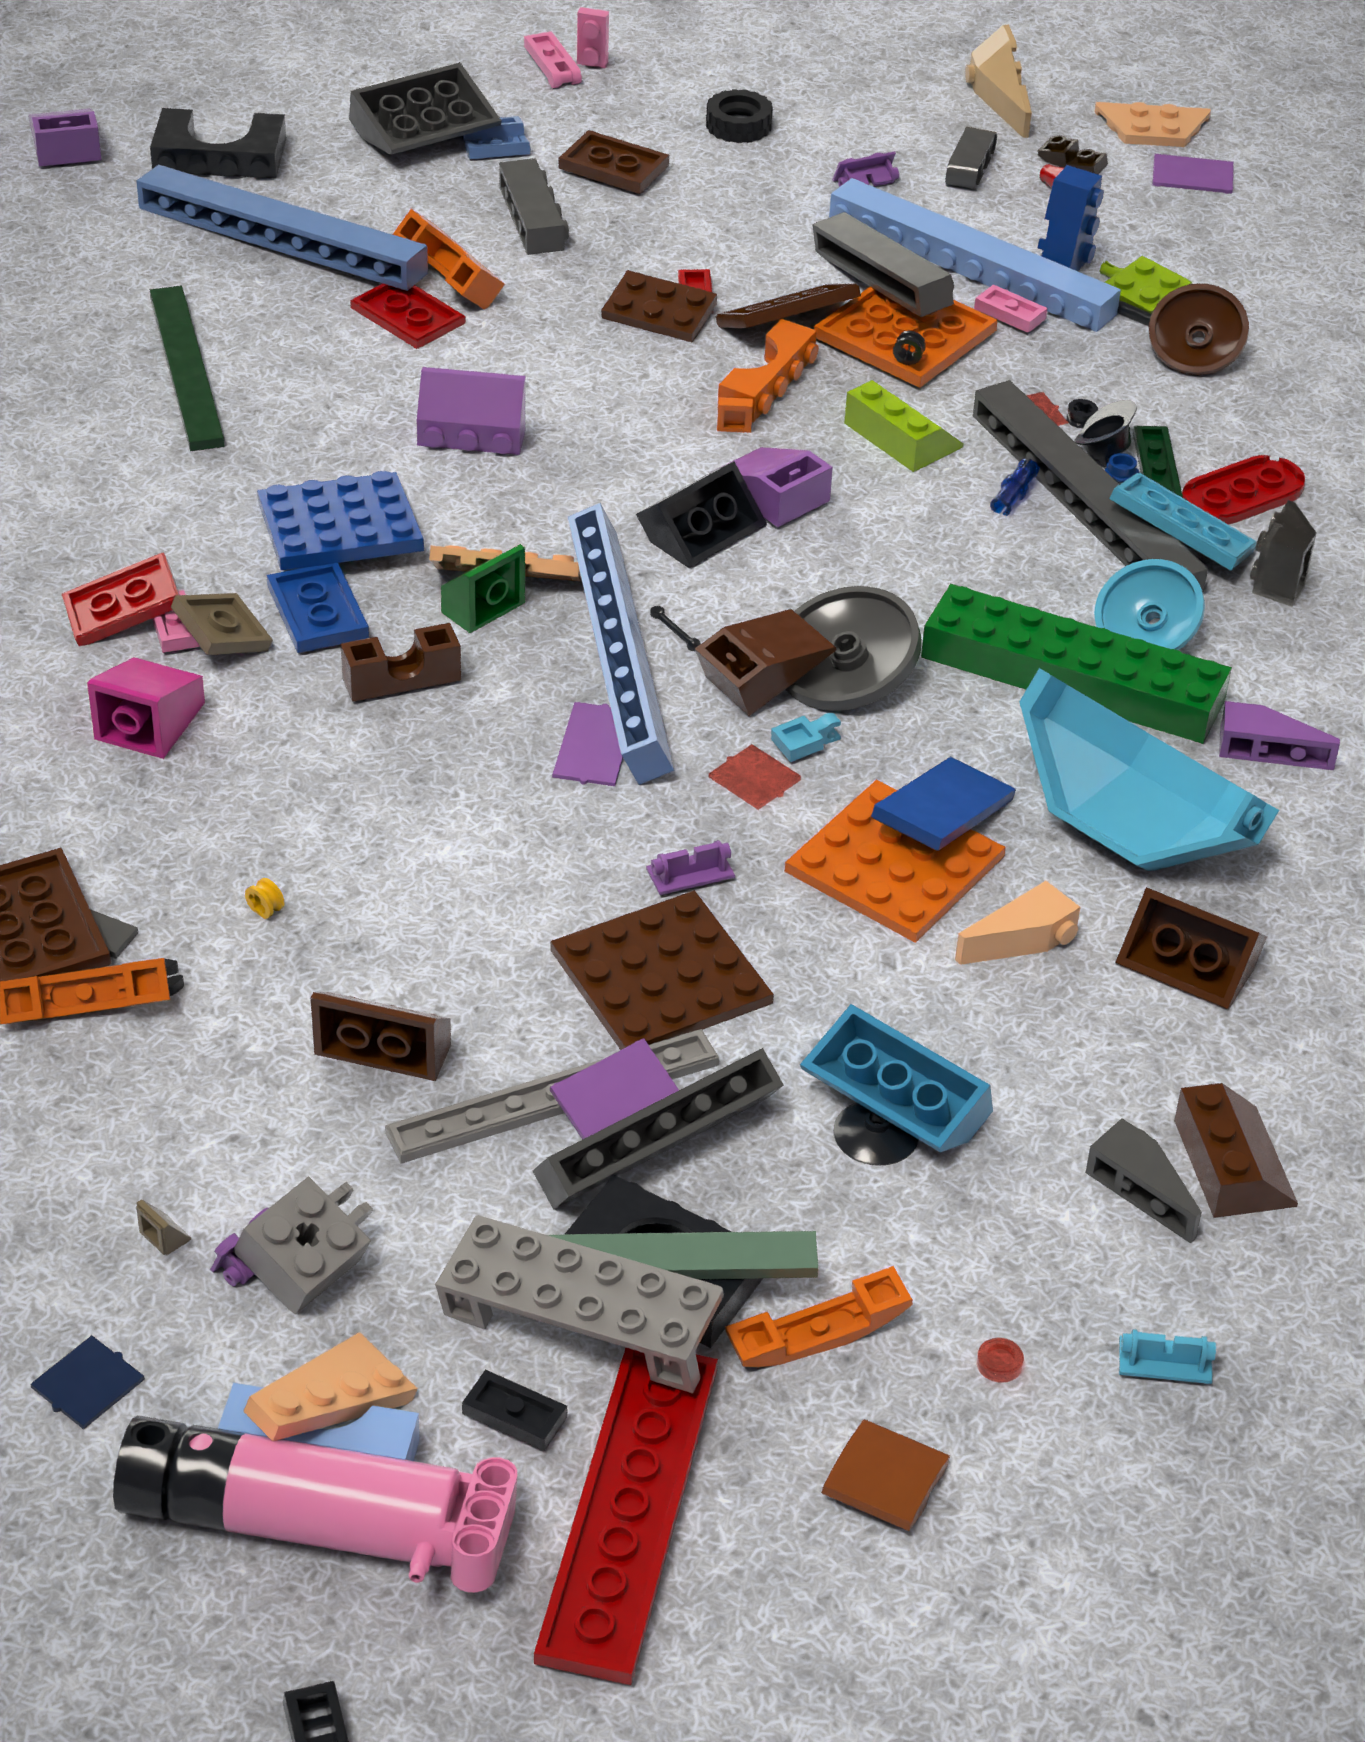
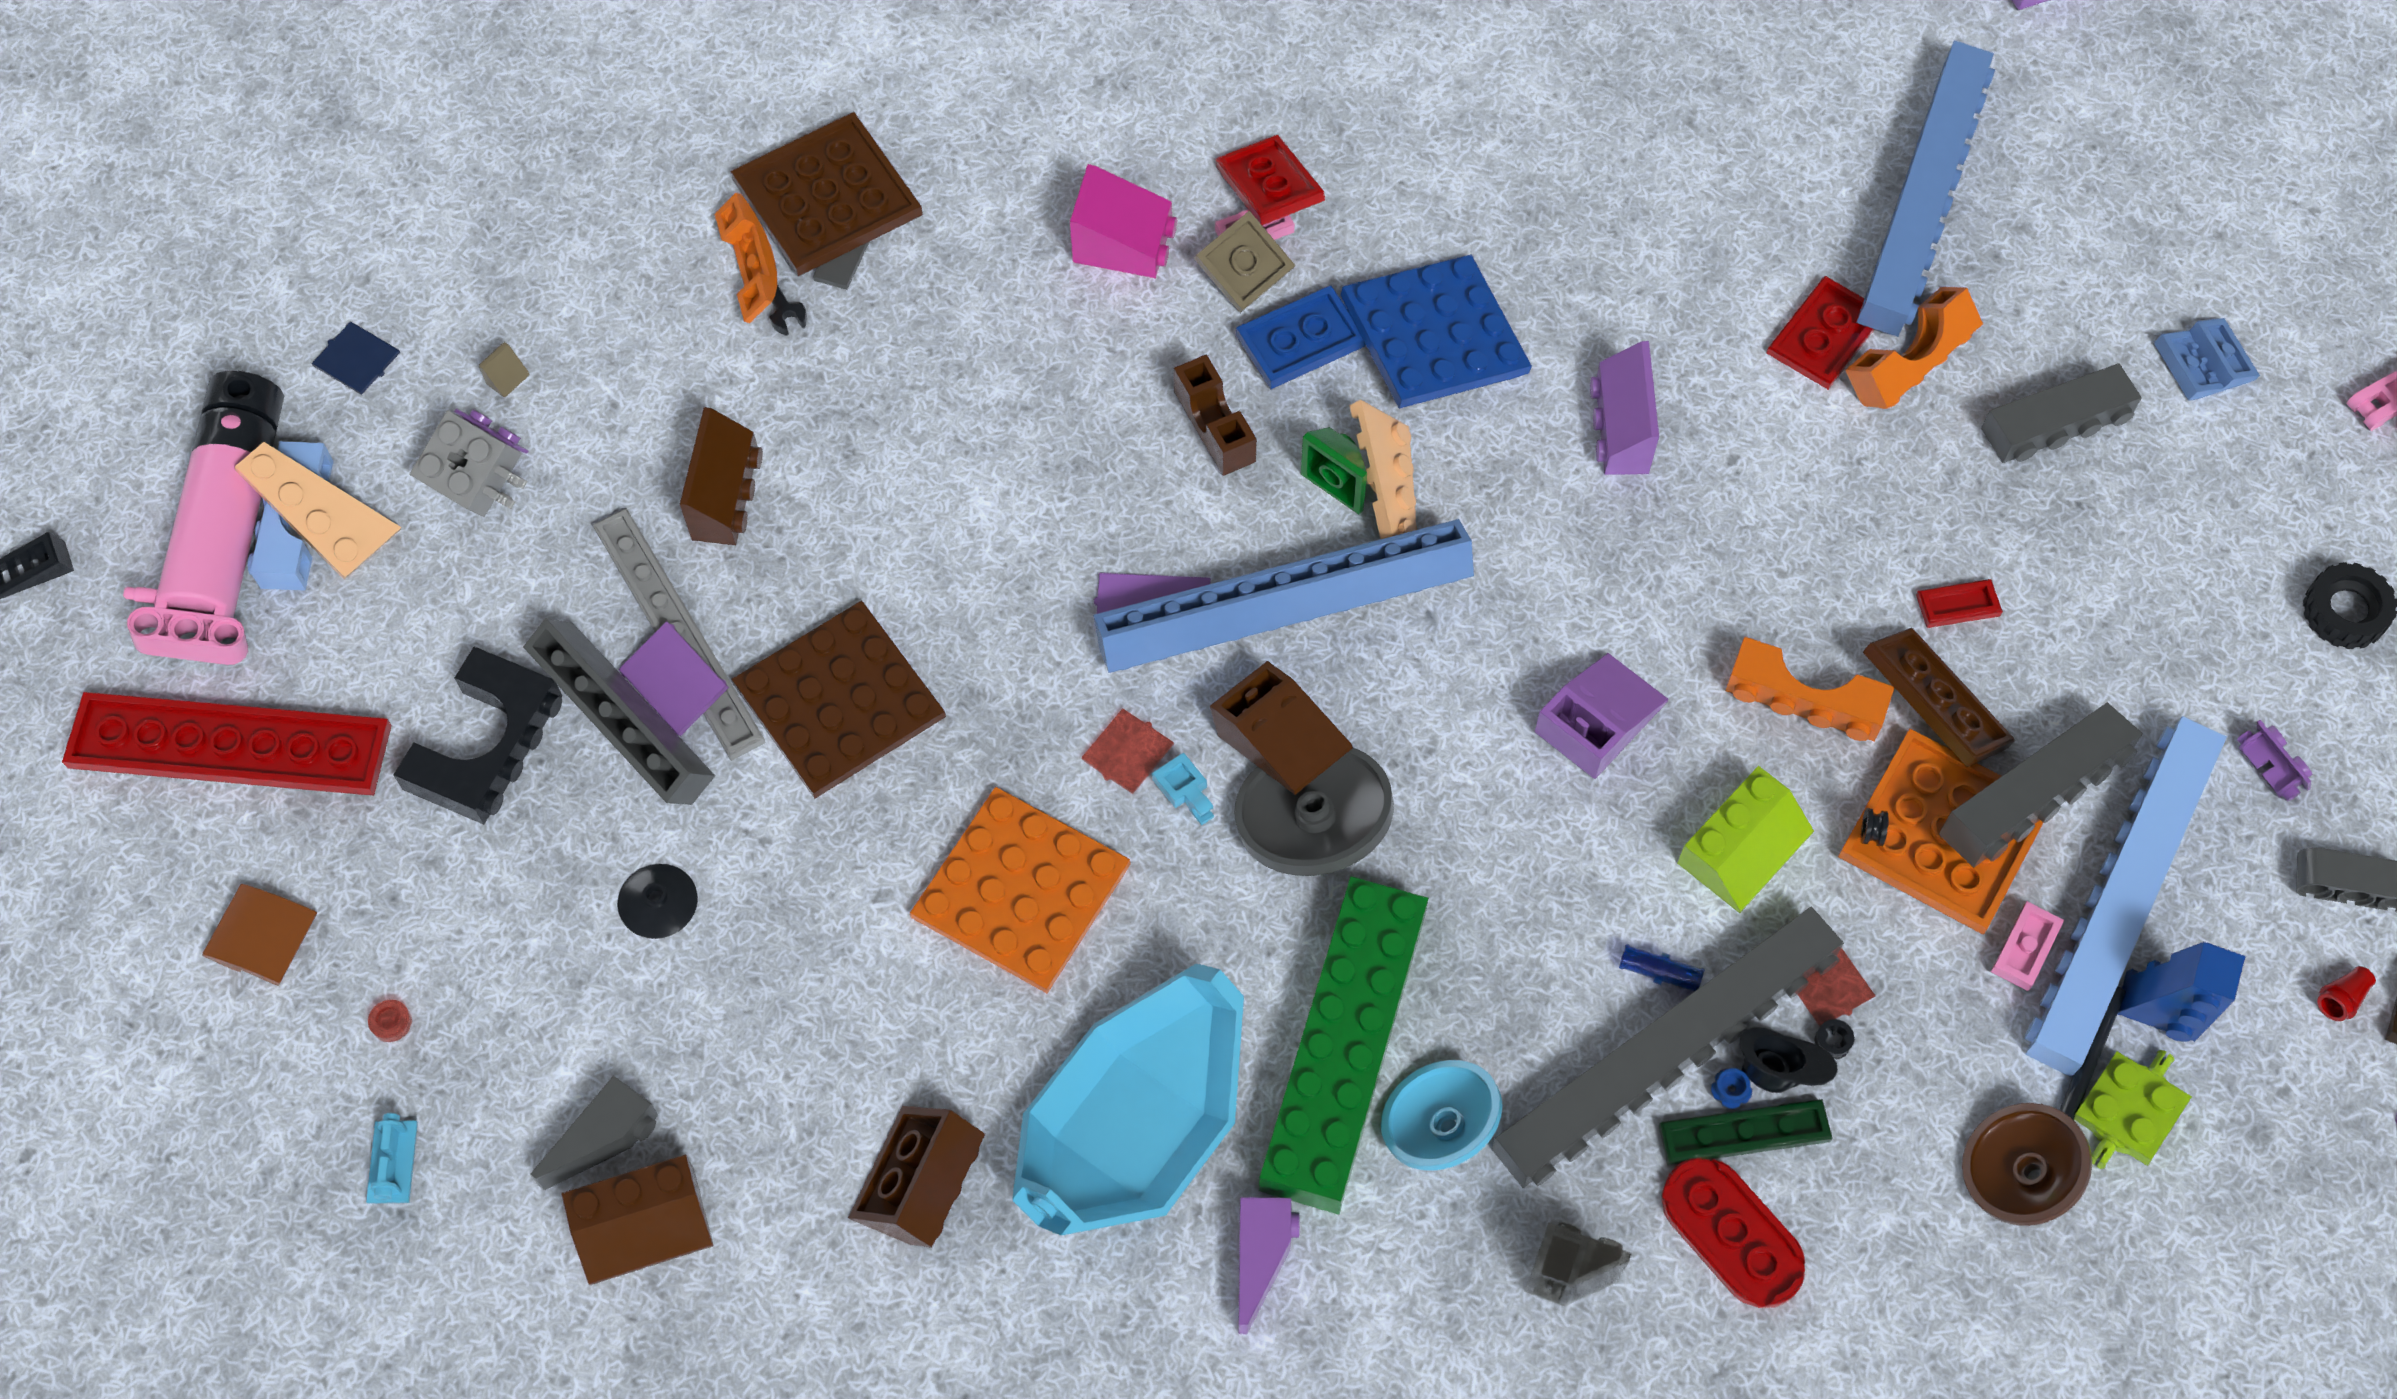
camera: 85 degrees right, 20 degrees up
(186, 369) = (1666, 158): dark green tile -> none
(253, 155) = (2063, 137): black arch -> none
(264, 898) = (886, 369): yellow bush -> none
(421, 109) = (2204, 275): dark grey slope -> none
(514, 1410) = (322, 648): black plate -> none
(582, 1293) = (399, 668): light grey bracket -> none
(613, 161) = (2194, 485): reddish brown plate -> none
(659, 306) = (1909, 569): reddish brown plate -> none
(659, 613) = (1366, 635): black hinge -> none
(680, 871) = (975, 705): medium lavender hinge -> none
(703, 516) = (1519, 651): black slope -> none
(714, 1253) = (453, 740): sand green tile -> none
(734, 414) = (1714, 664): orange plate -> none
(821, 1327) = (416, 863): orange slope -> none
(900, 1080) = (688, 904): dark azure slope -> none
(943, 803) = (1088, 921): blue tile -> none
(1021, 927) = (933, 1018): light nougat slope -> none
(1184, 520) = (1618, 1151): medium azure tile -> none

